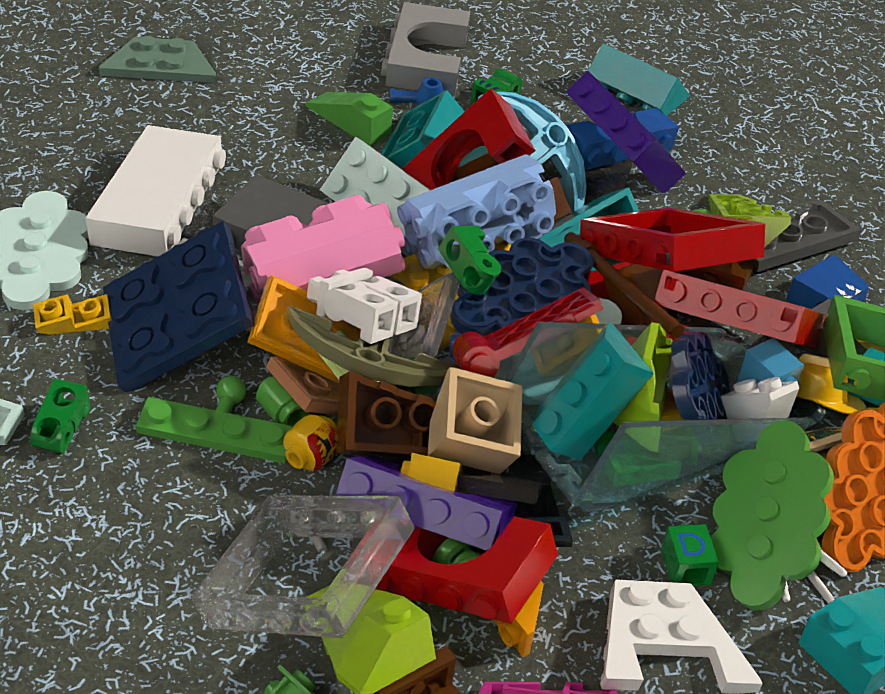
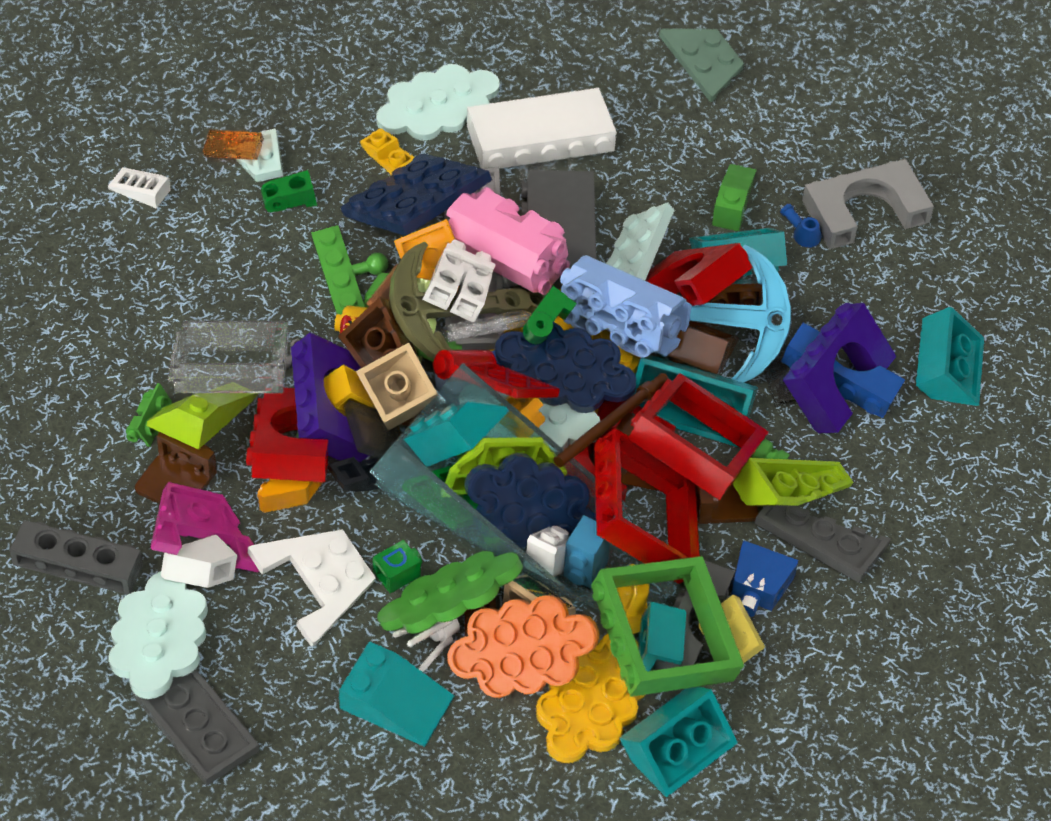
camera: 65 degrees right, 10 degrees up
(500, 82) = (849, 271): green leg -> none

